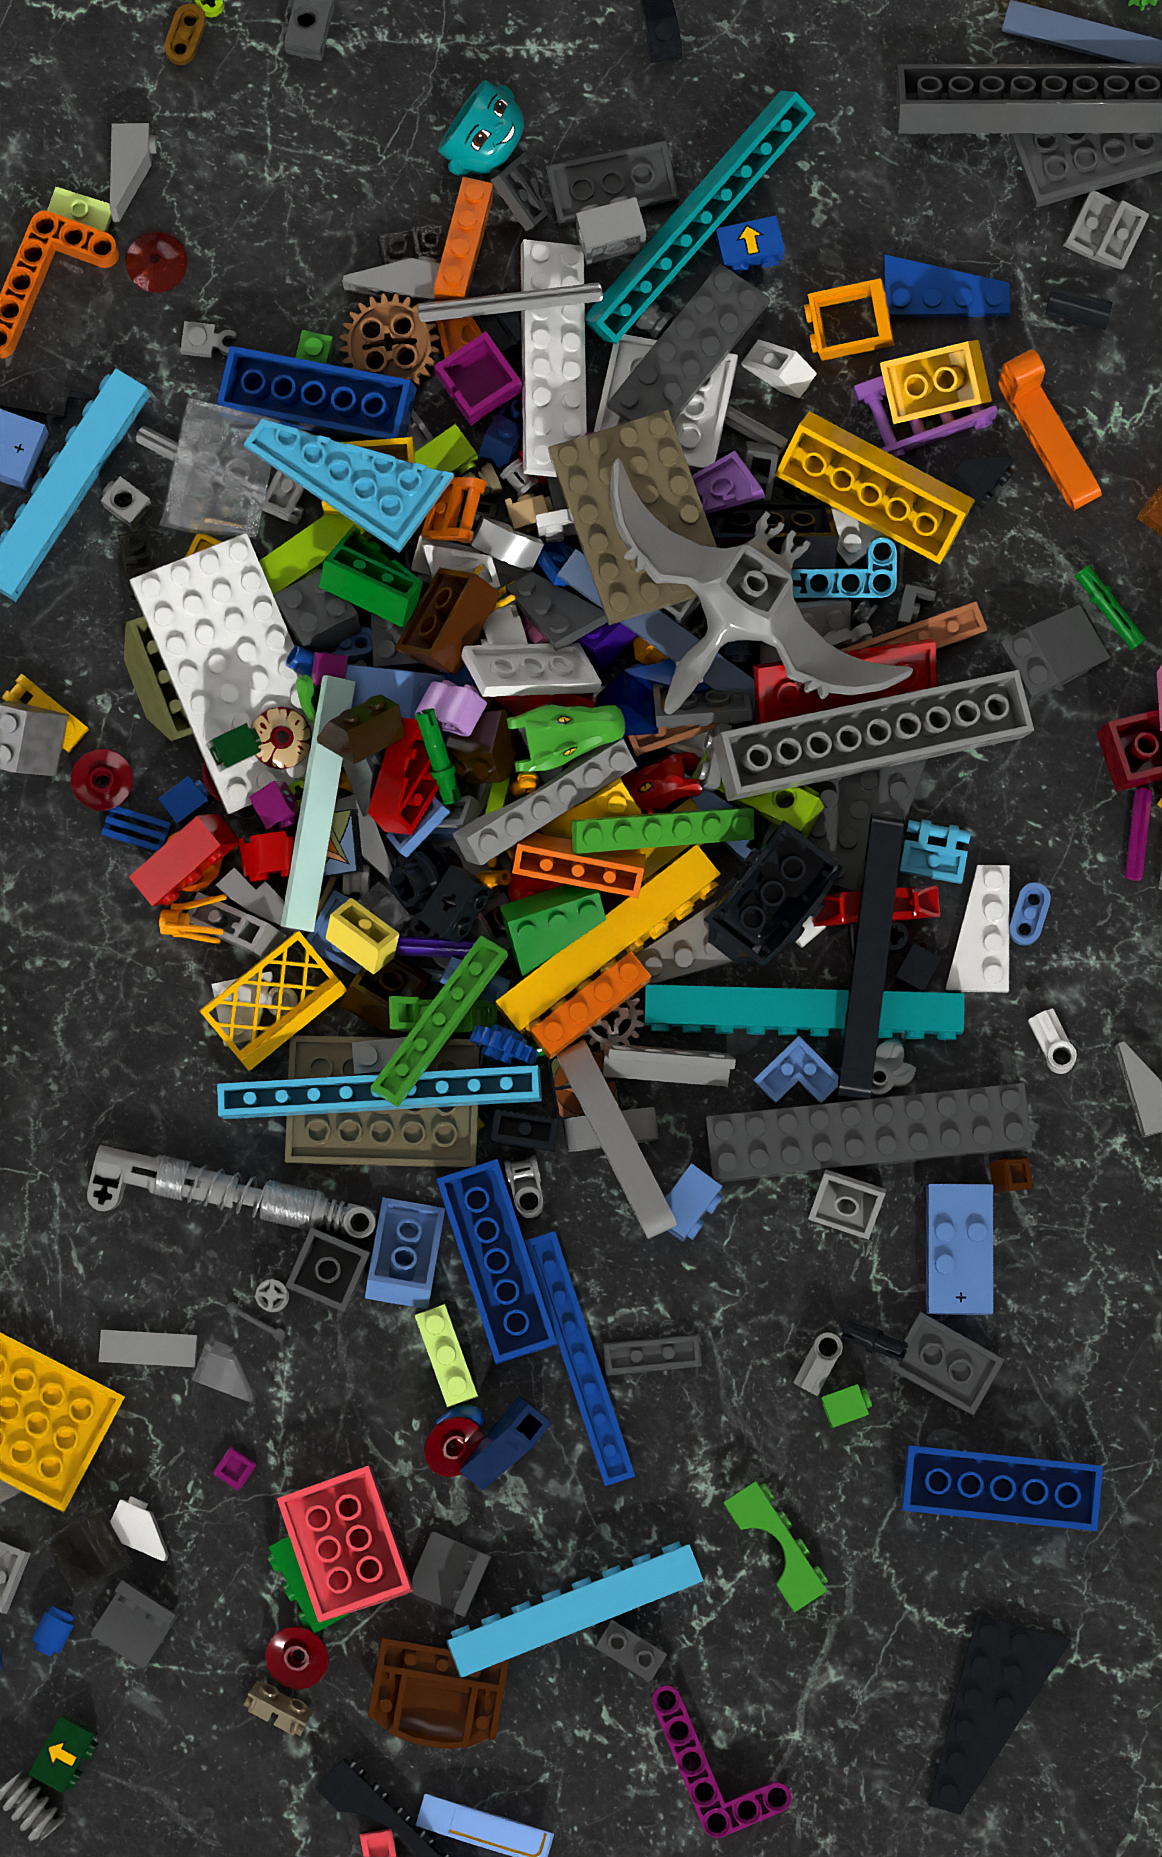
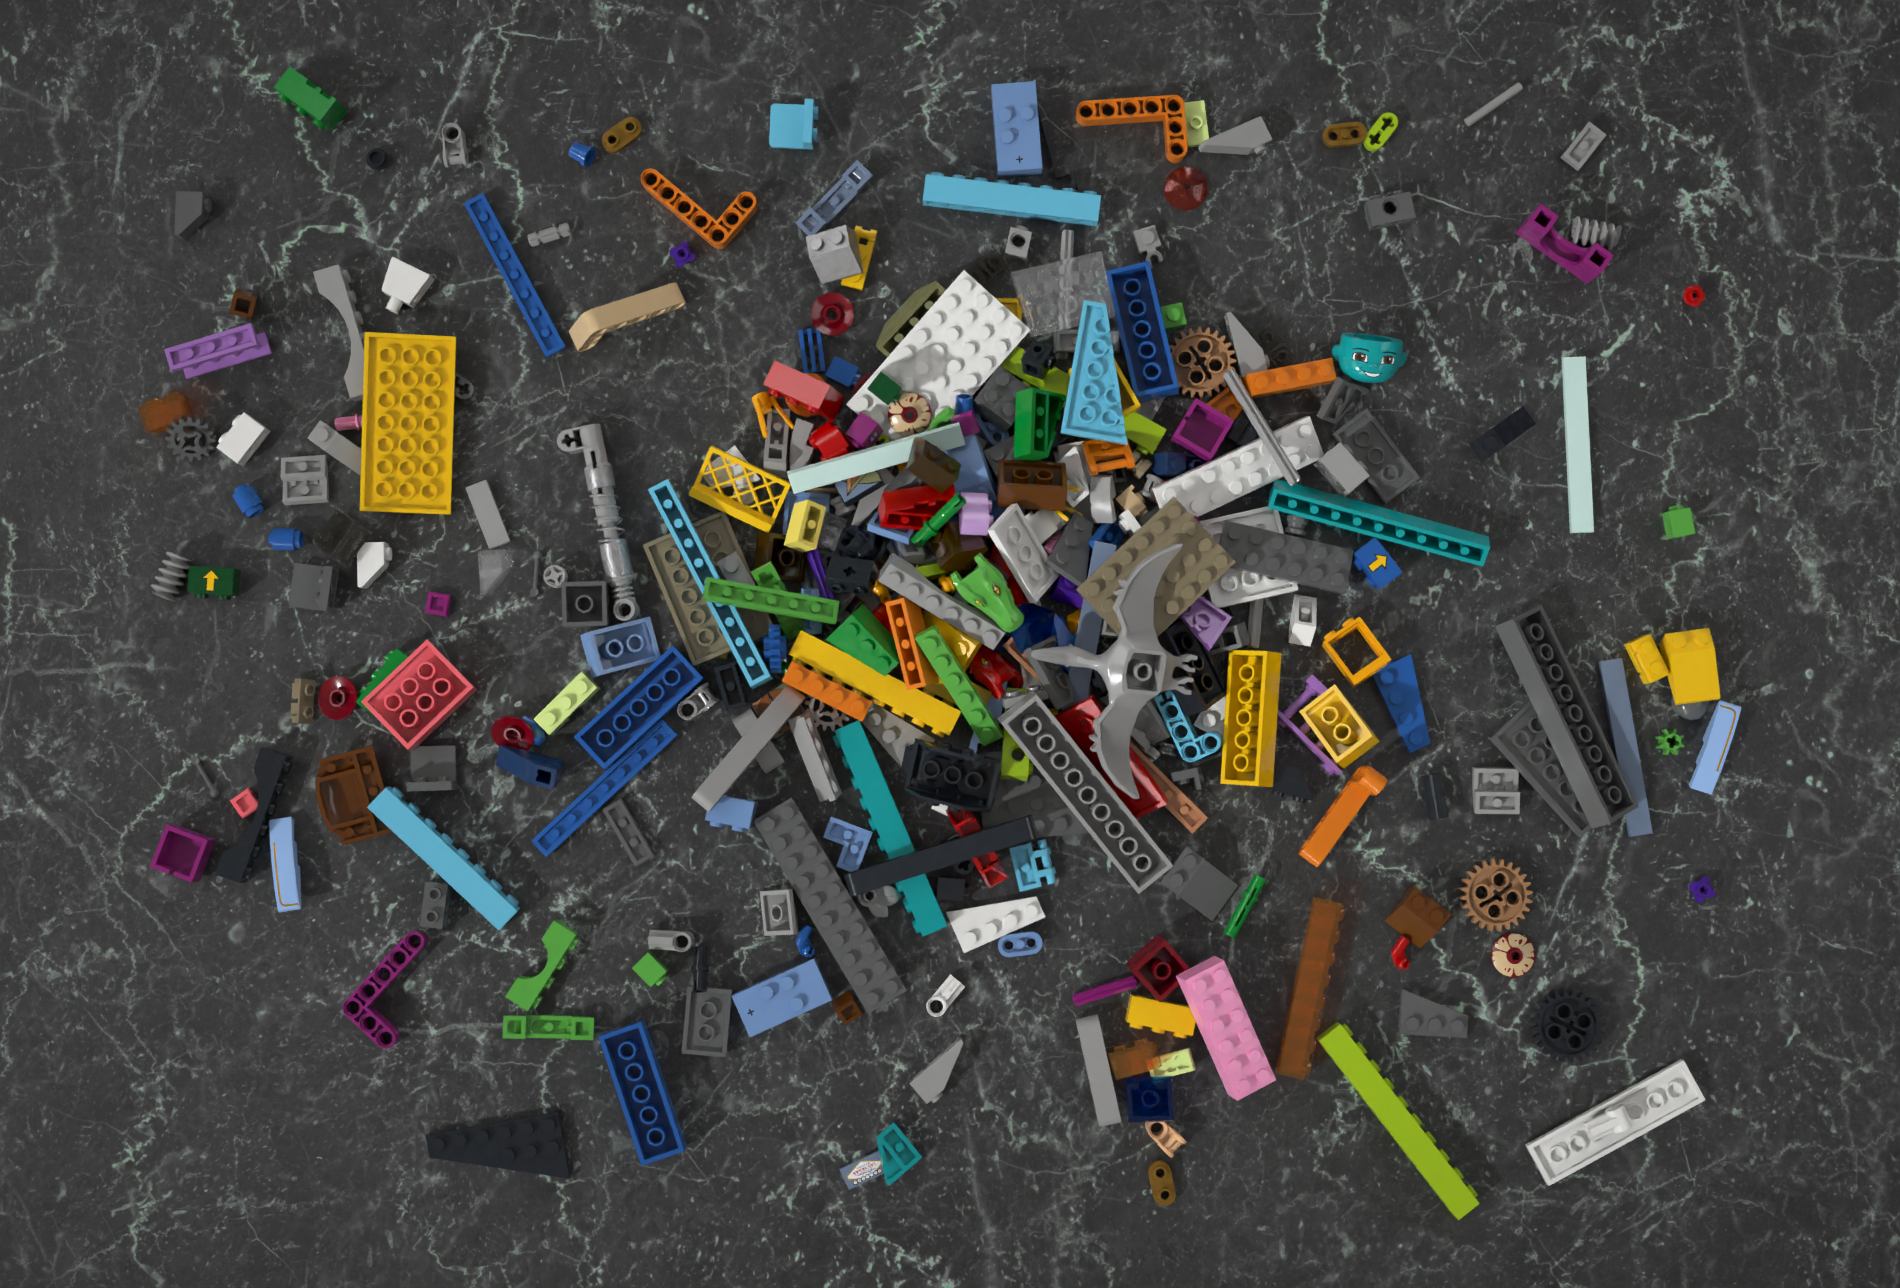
camera: 60 degrees right, 5 degrees up
(290, 540) = (1038, 359): none -> black brick
(860, 1575) = (548, 1027): none -> bright green slope
(901, 1192) = (803, 942): none -> blue arm

